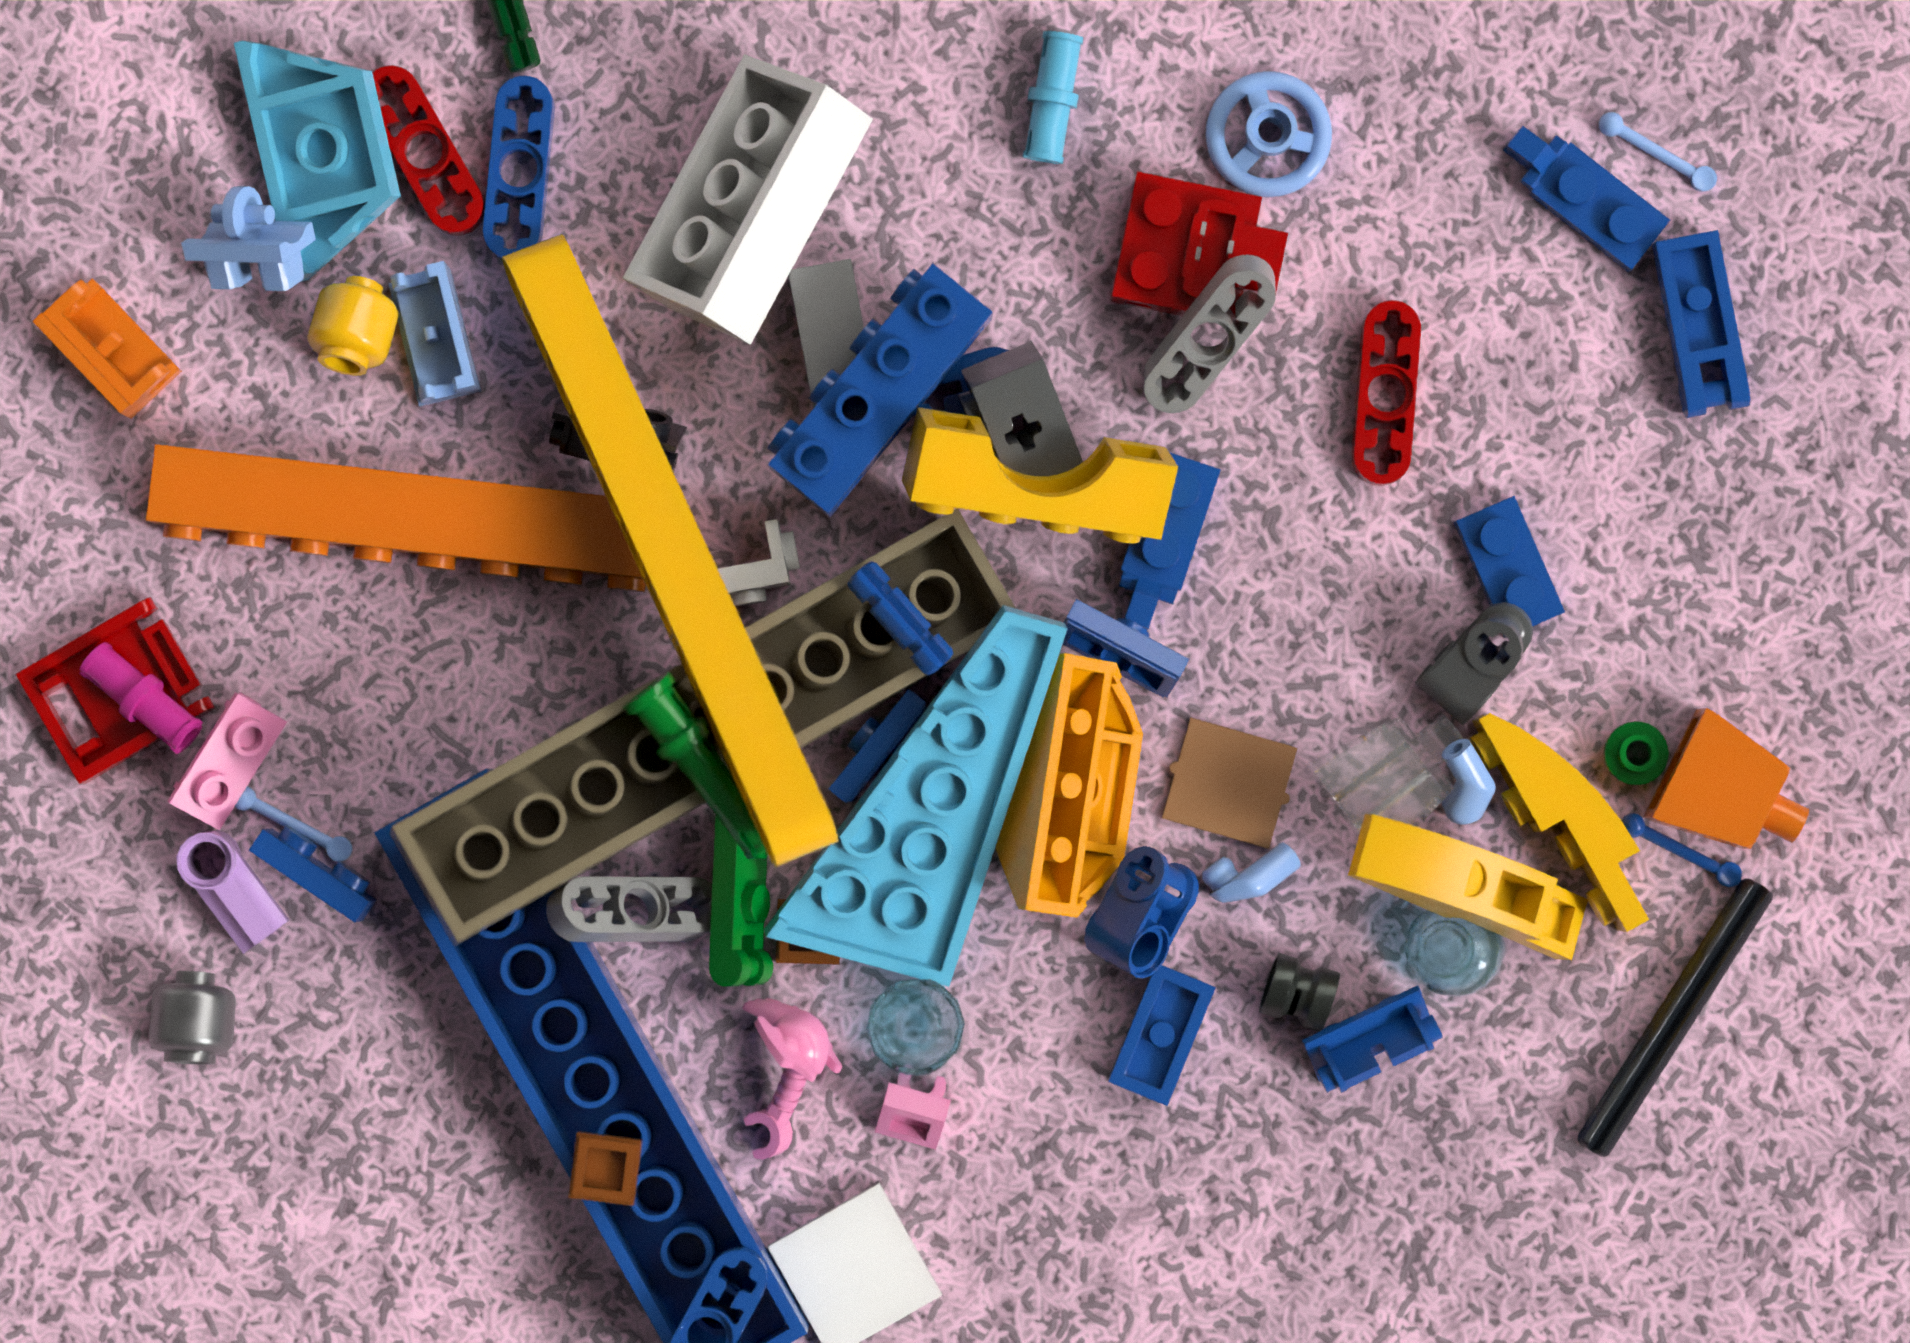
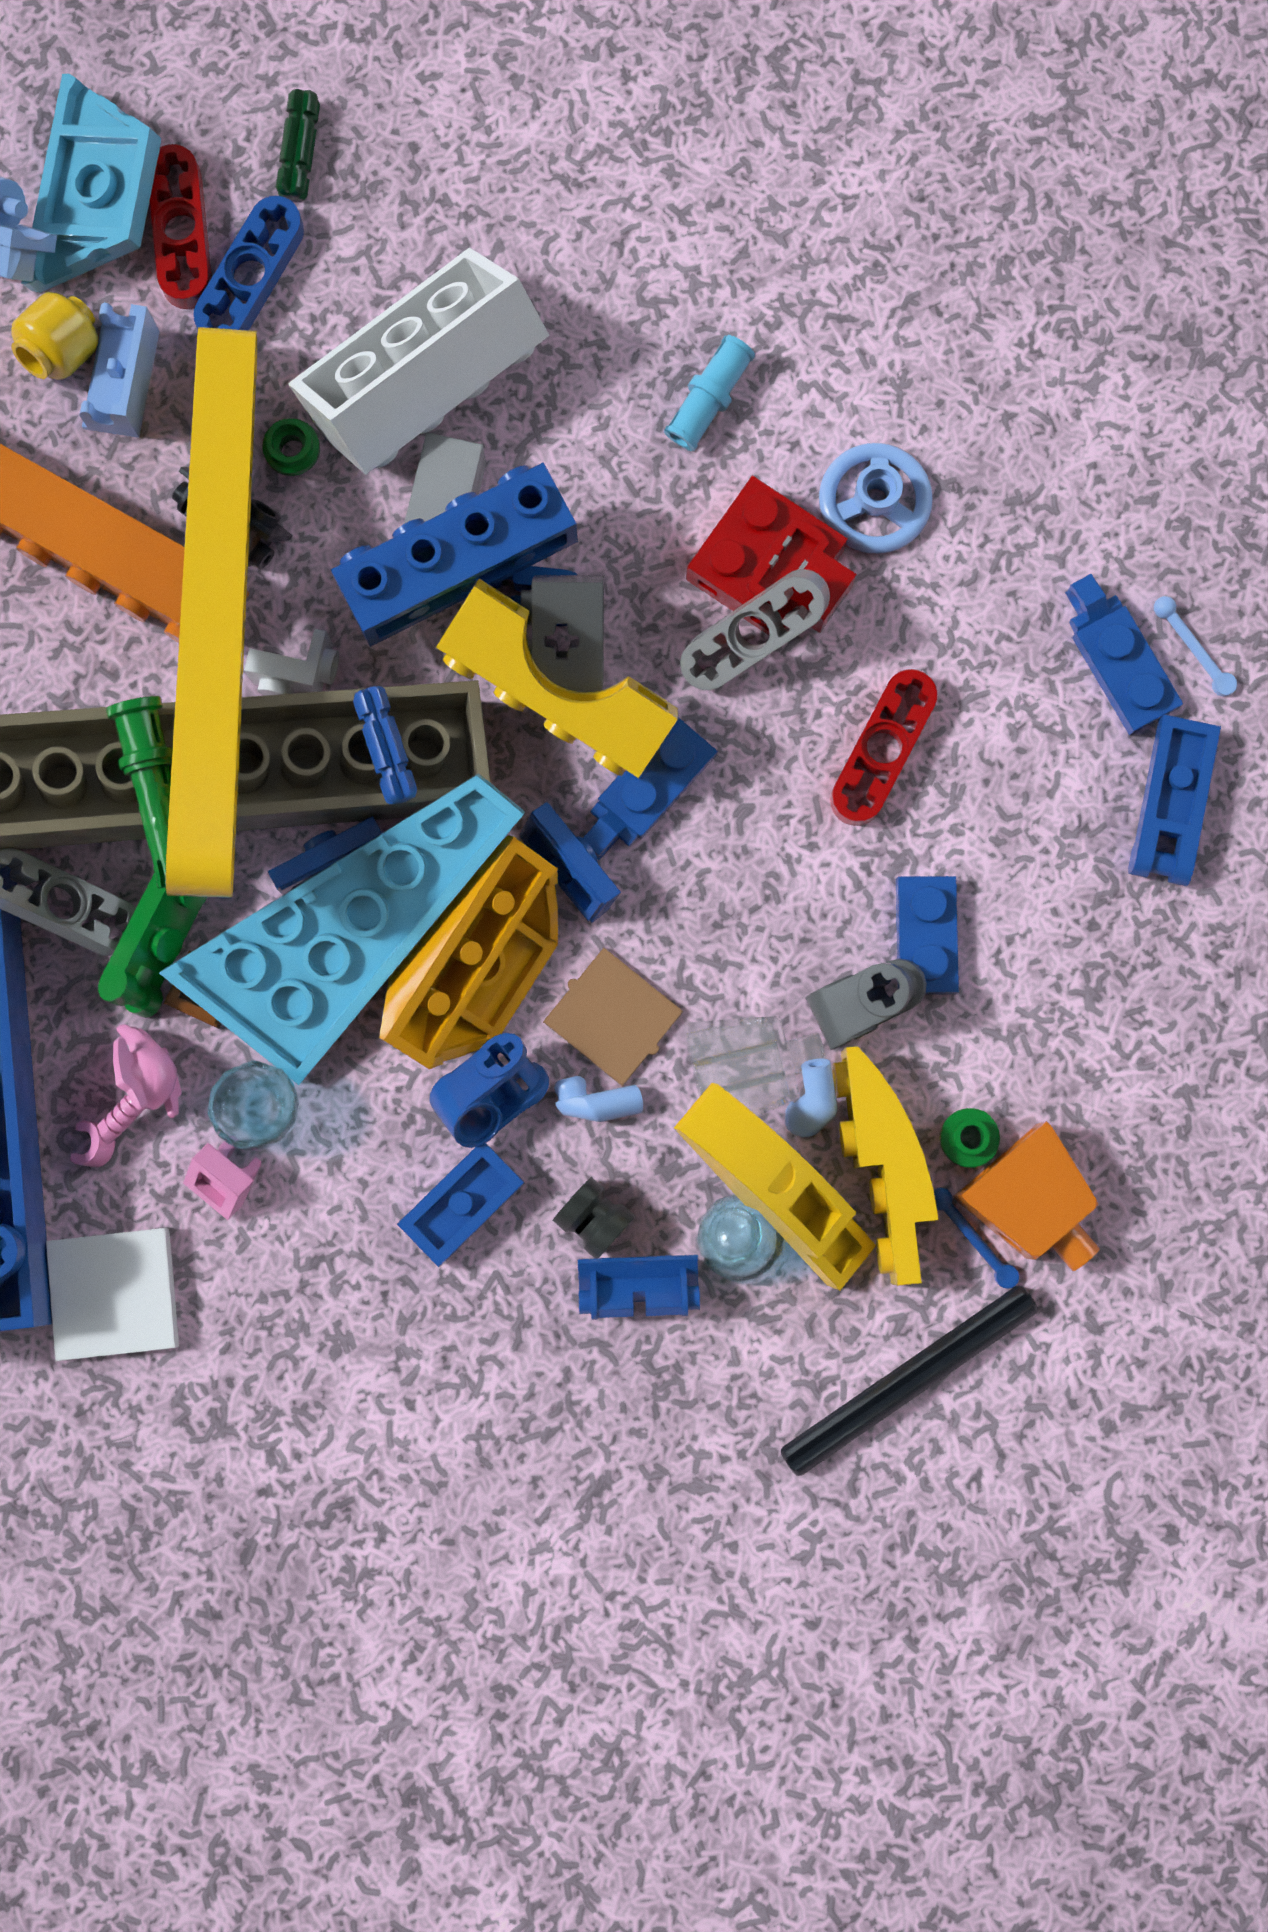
camera: 30 degrees right, 5 degrees down
(646, 316) = (283, 432): none -> green plate

